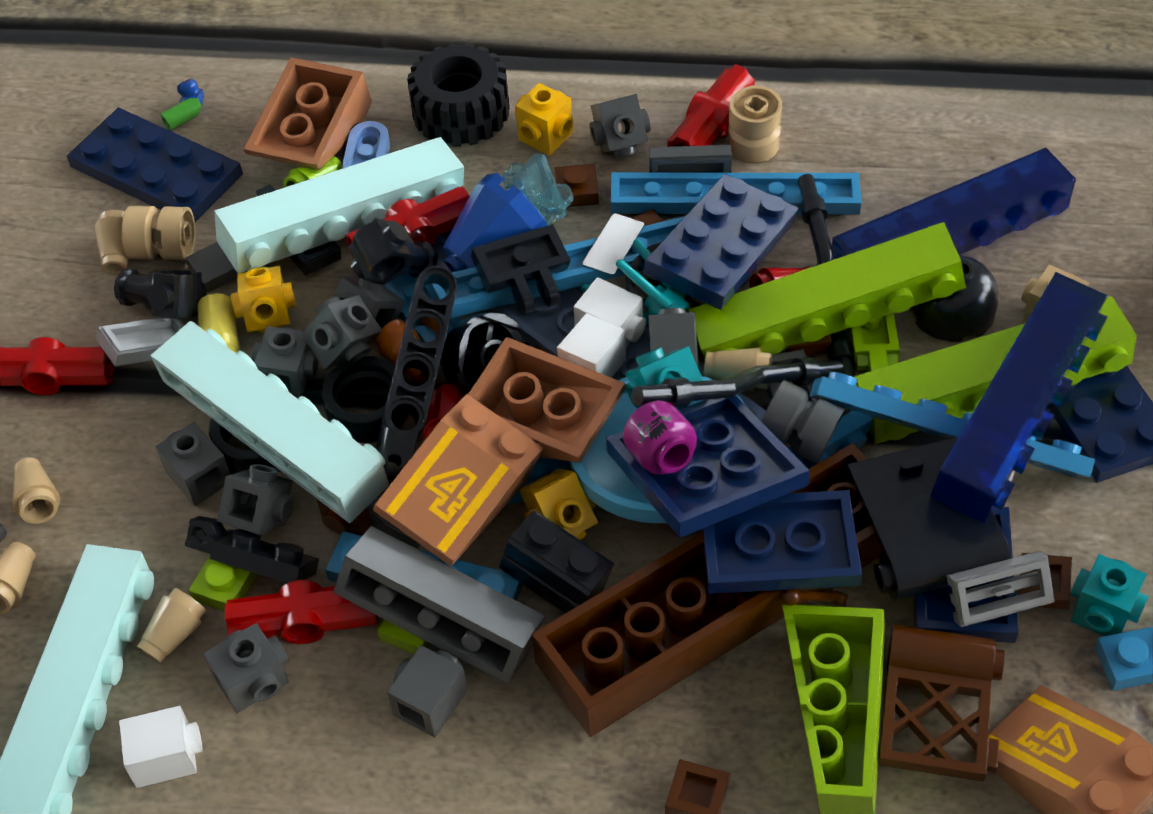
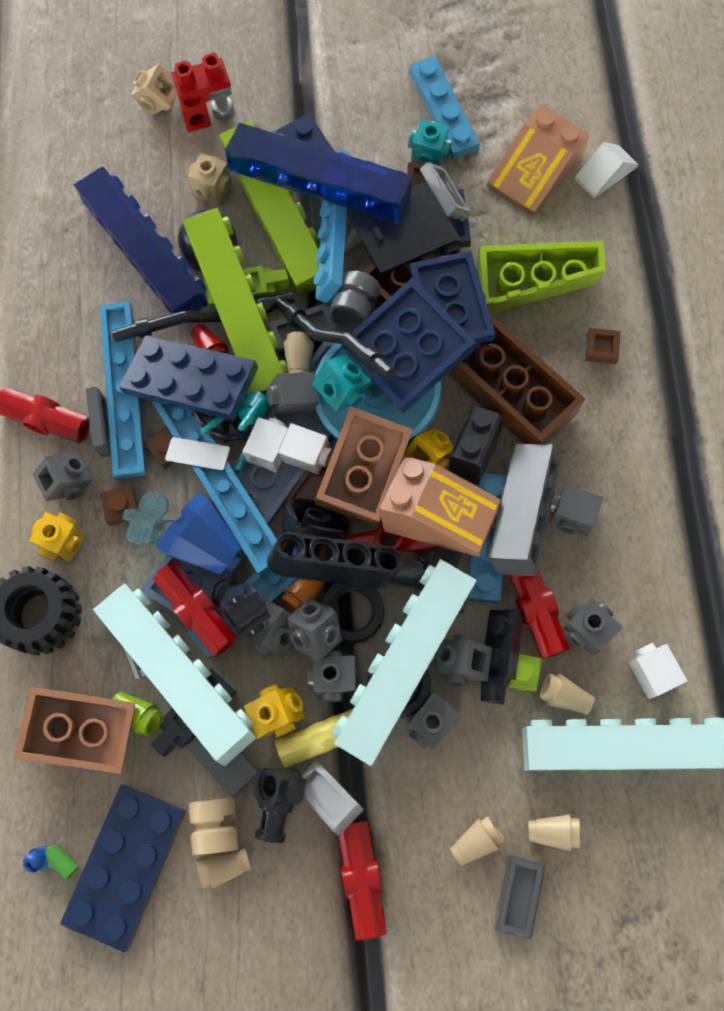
camera: 100 degrees left, 20 degrees up
(366, 142) = (105, 676): light blue plate -> none
(522, 259) = (238, 506): black hinge -> none
(660, 438) = (414, 361): magenta head -> none
(754, 123) = (55, 378): tan wheel -> none
(949, 665) = (490, 220): reddish brown piece -> none

